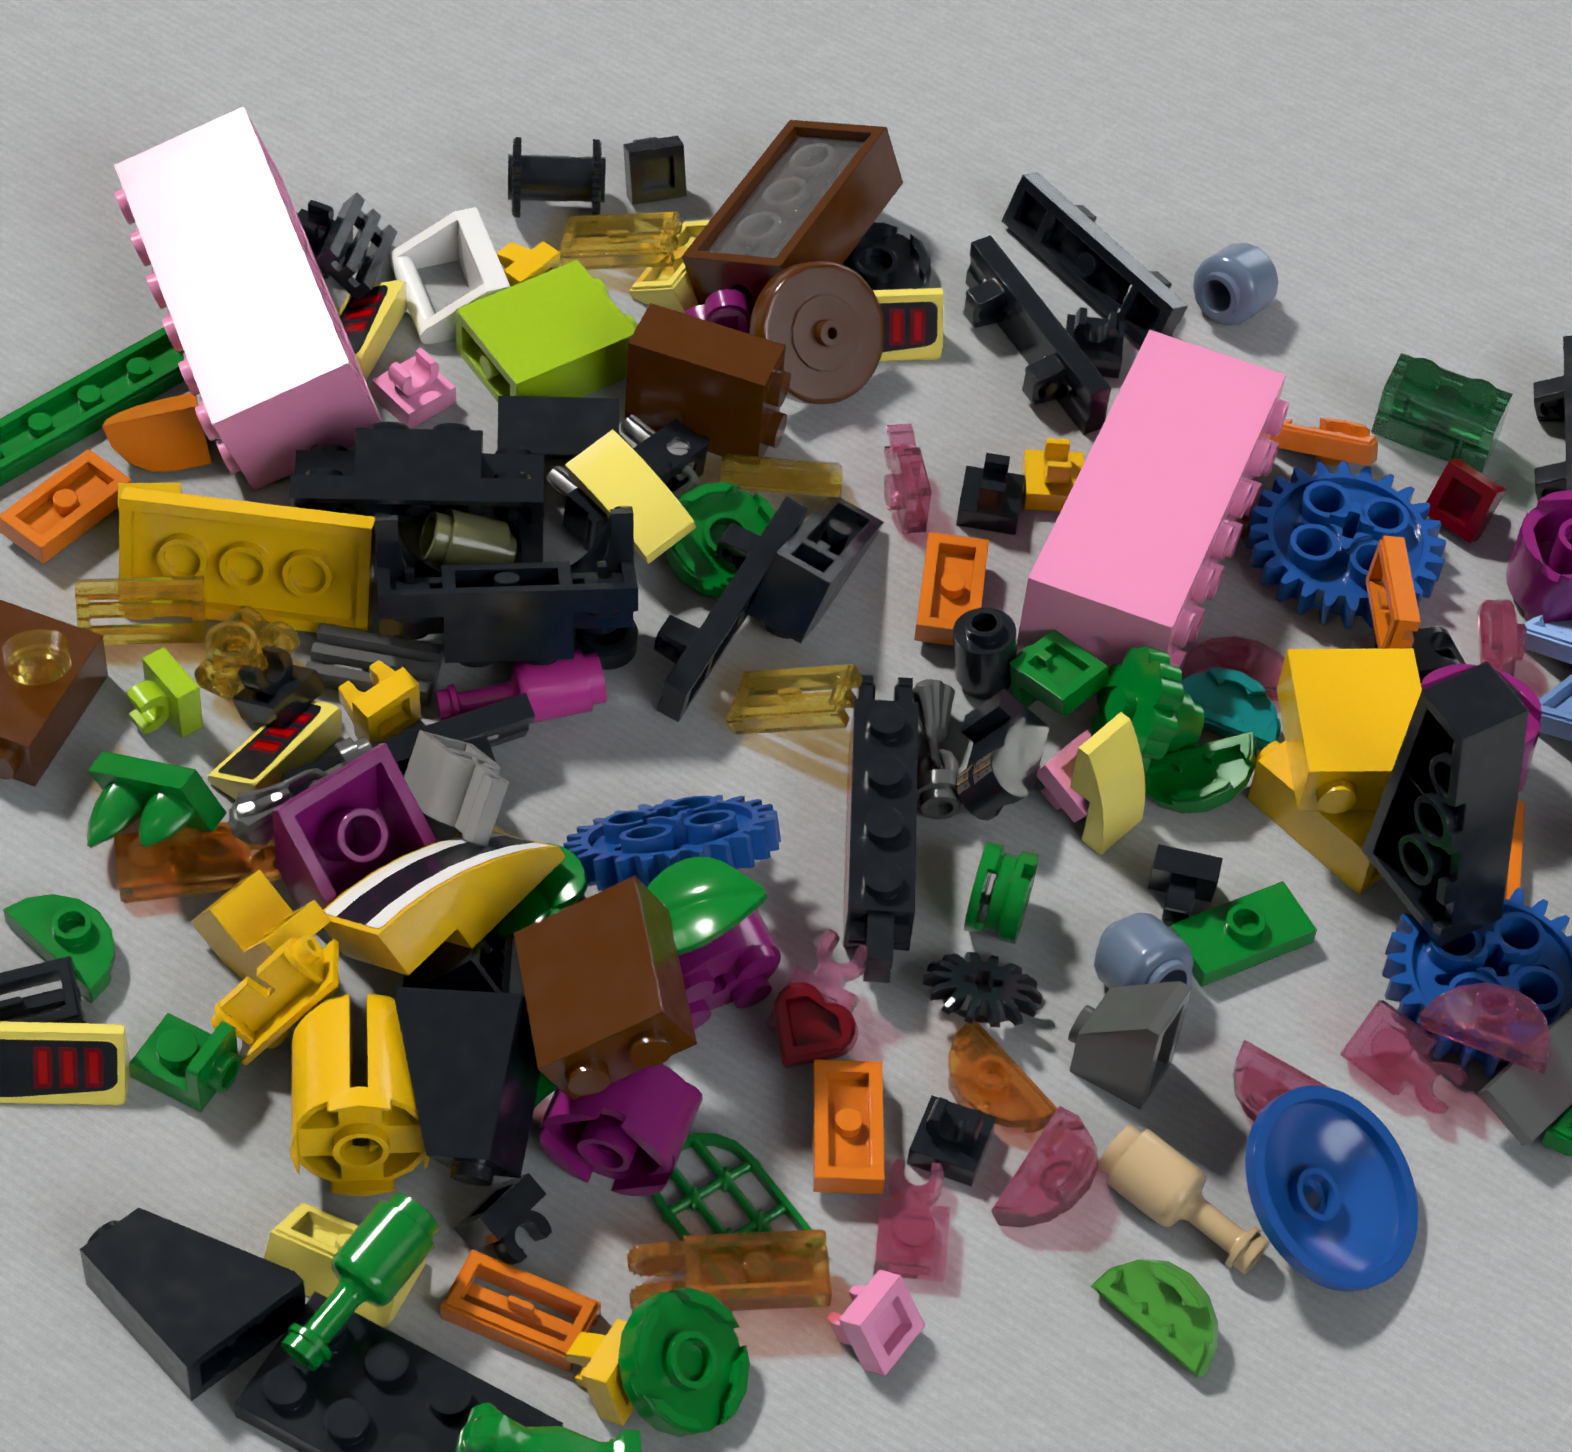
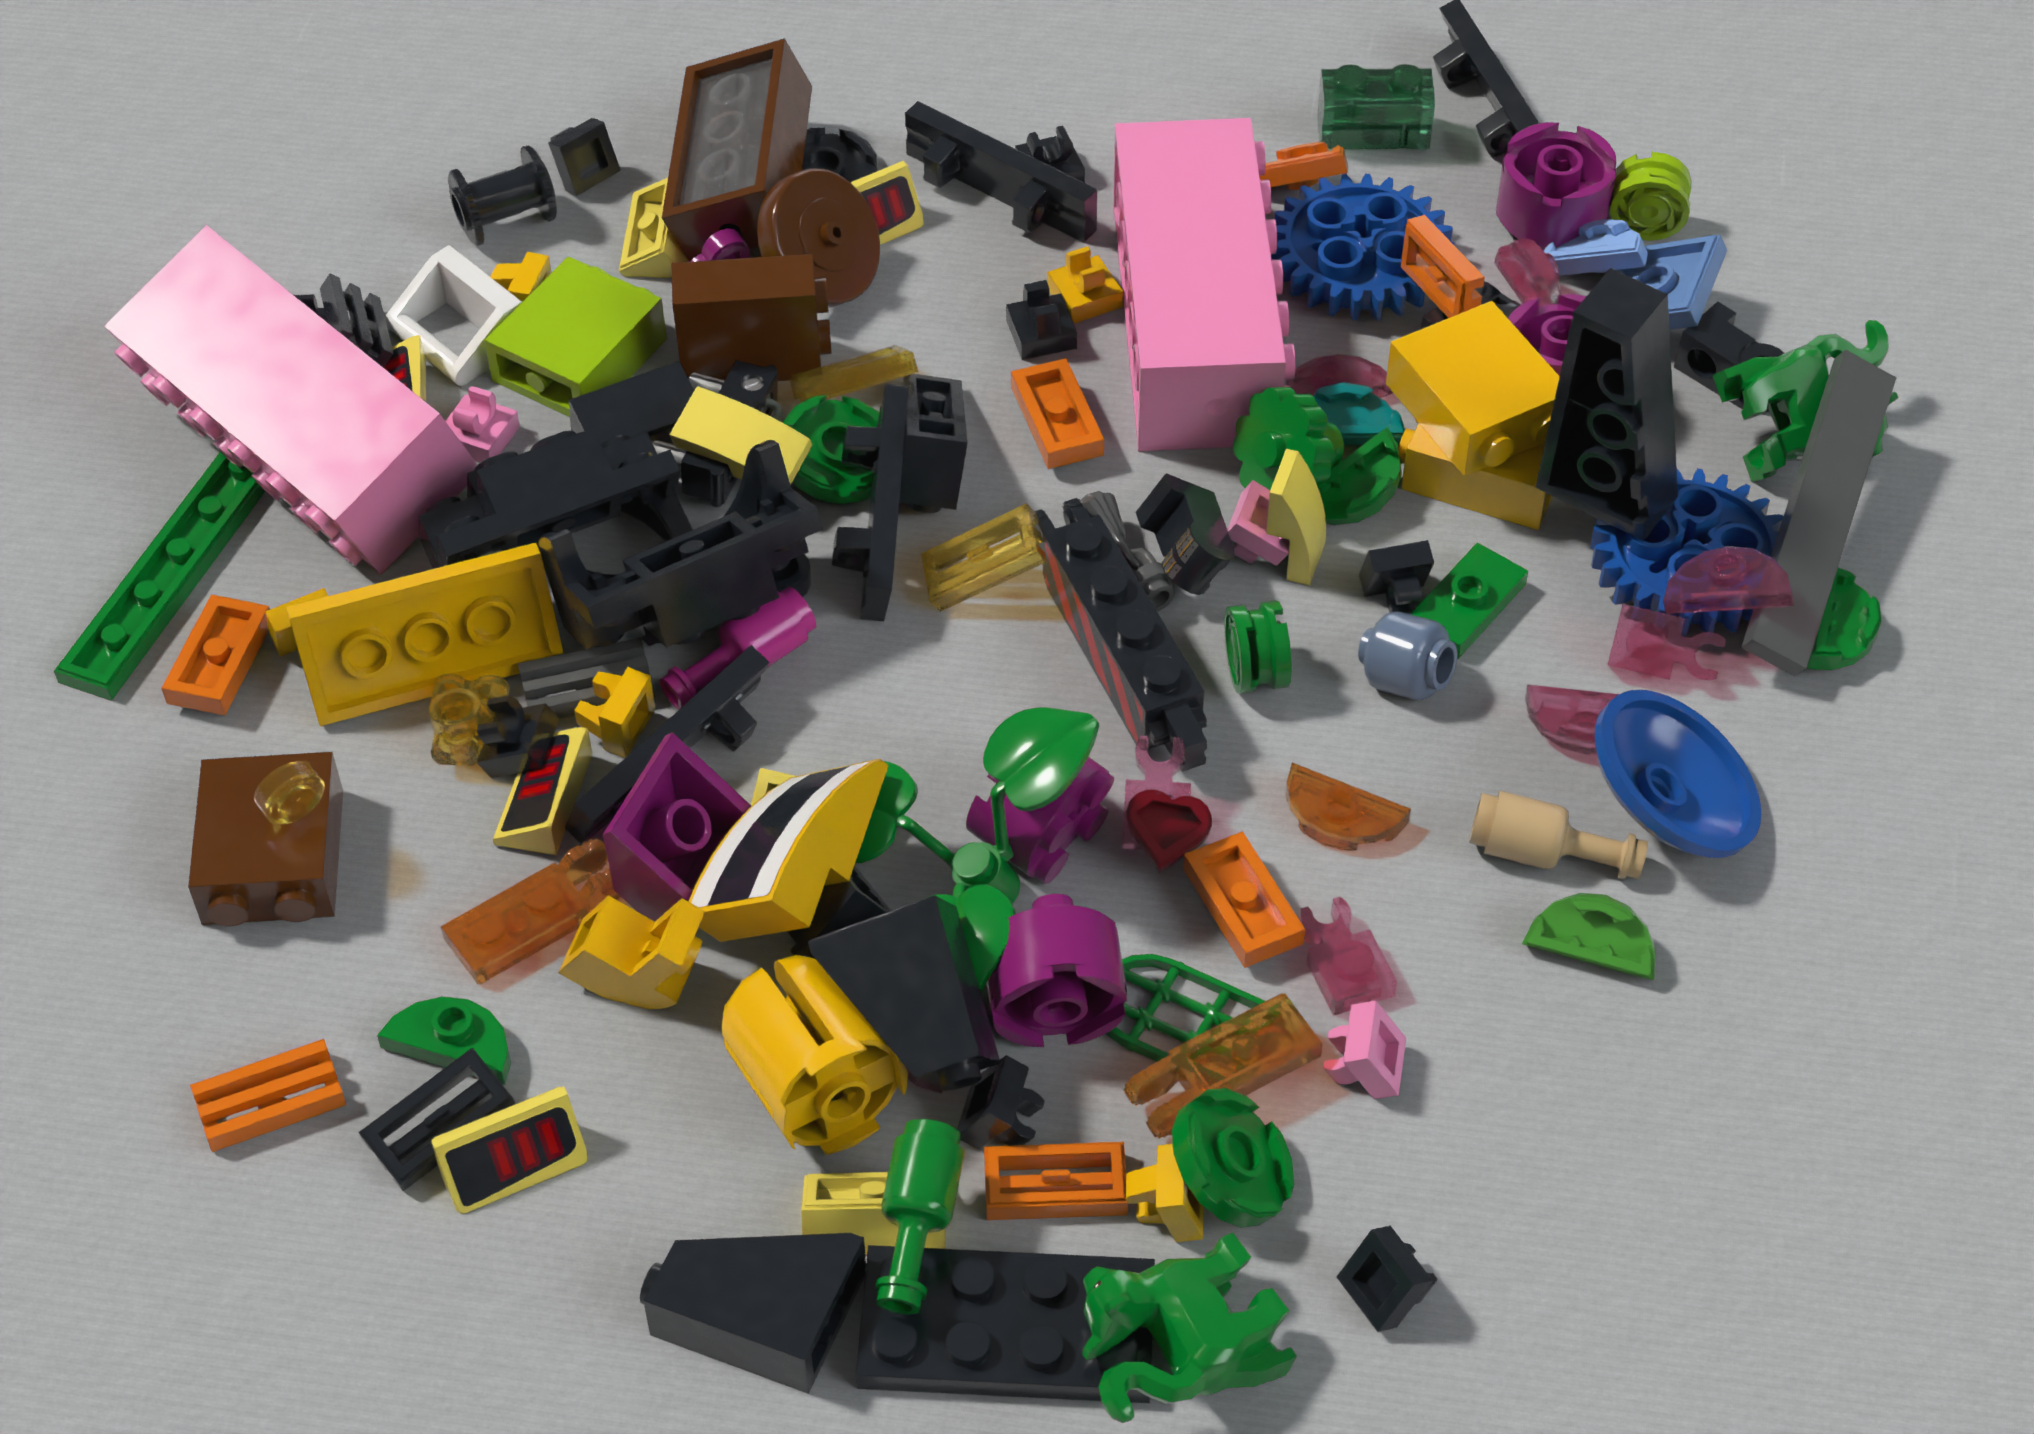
camera: 20 degrees left, 0 degrees up
(143, 588) = (341, 696): clear yellow tile -> none
(157, 792) = (470, 868): green tile -> none
(160, 435) = (270, 555): orange brick -> none
(165, 696) = (417, 783): lime tile -> none
(188, 1061) = (629, 1096): green bracket -> none
(252, 812) = (578, 845): dark grey piece -> none
(299, 980) = (705, 976): yellow hinge -> none
(456, 785) = (750, 746): light grey piece -> none
(465, 539) = (616, 534): olive brick -> none
(604, 989) = (1004, 860): reddish brown brick -> none
(621, 240) = (591, 227): clear yellow tile -> none
(659, 835) = (954, 720): blue gear -> none
(908, 485) = (968, 337): clear pink plate -> none
(952, 1138) = (1334, 870): black tile -> none
(955, 980) = (1264, 738): black gear -> none
(982, 651) = (1122, 452): black brick -> none
(1052, 1174) = (1438, 864): clear pink plate -> none
(1056, 674) = (1195, 444): green bracket -> none
(1092, 259) = (1012, 93): black hinge -> none
(1129, 1038) = (1438, 721): dark grey slope -> none
(1235, 284) = (1142, 67): sand blue head -> none
(1464, 500) = (1436, 171): dark red tile -> none

